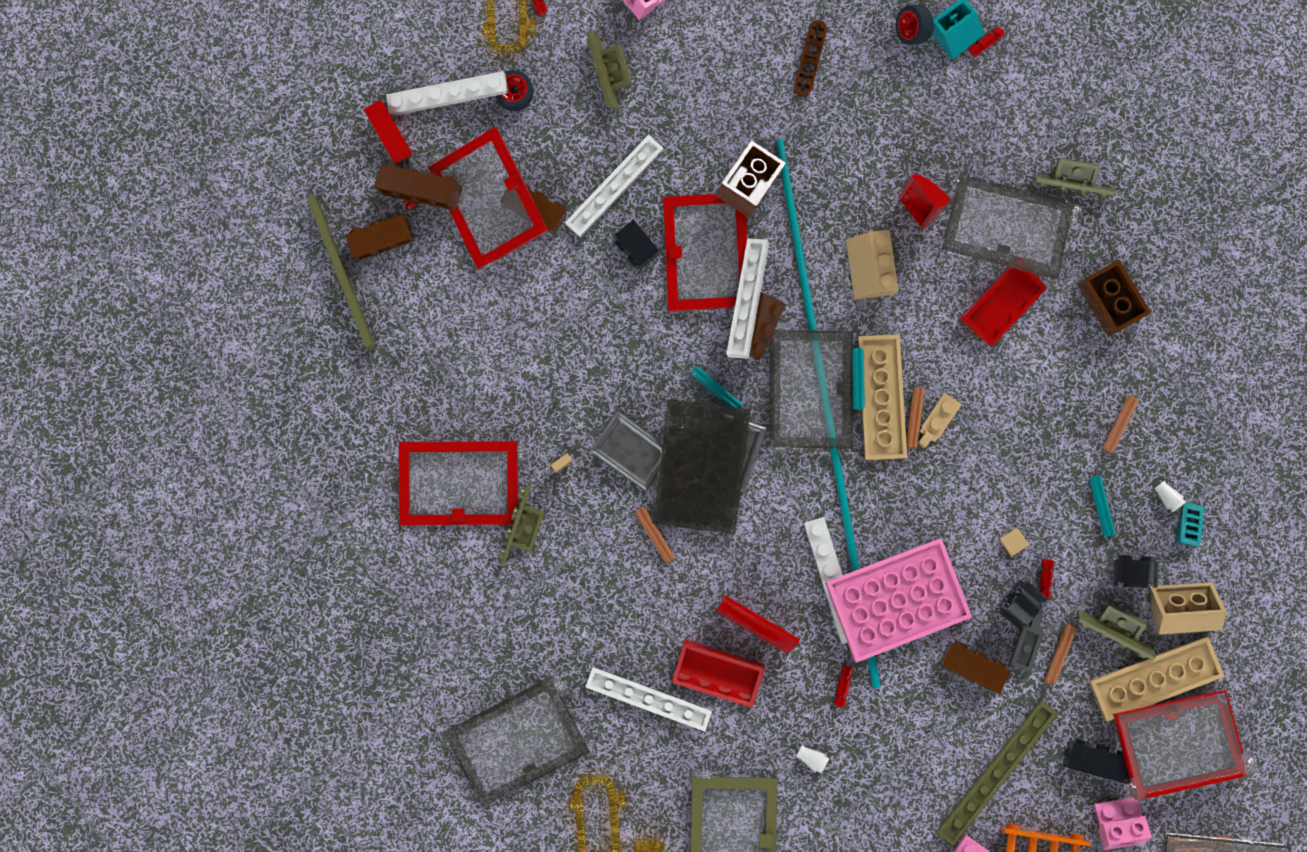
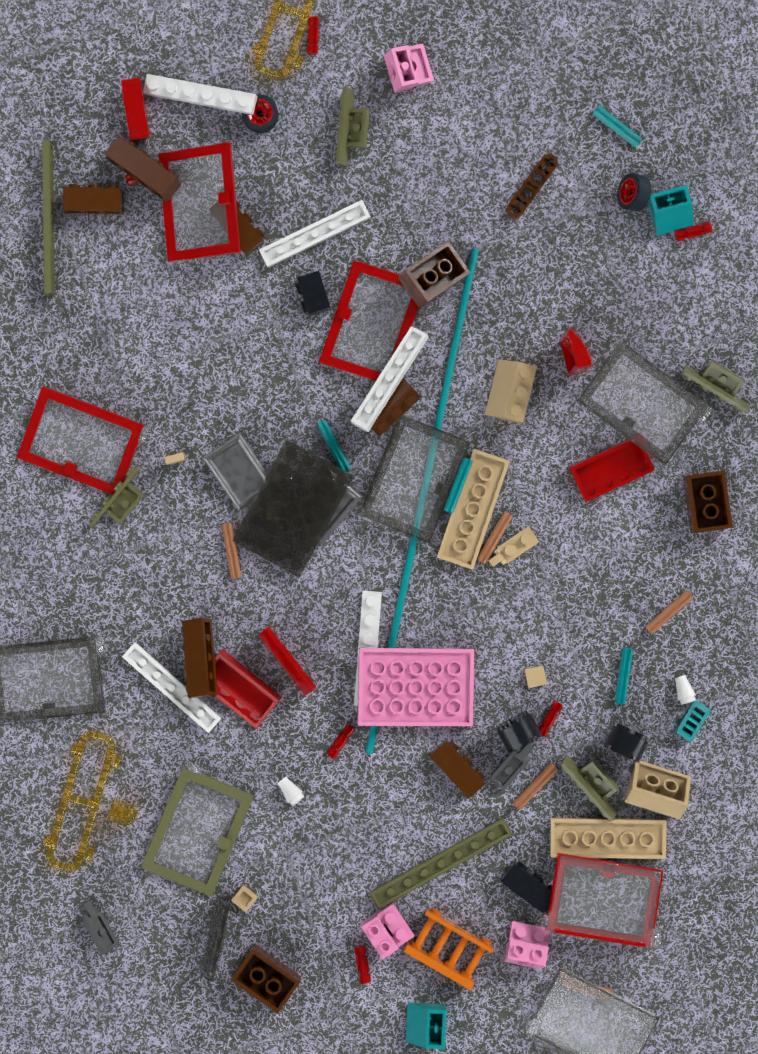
camera: 15 degrees right, 5 degrees up
(666, 657) = (199, 658): none -> reddish brown brick

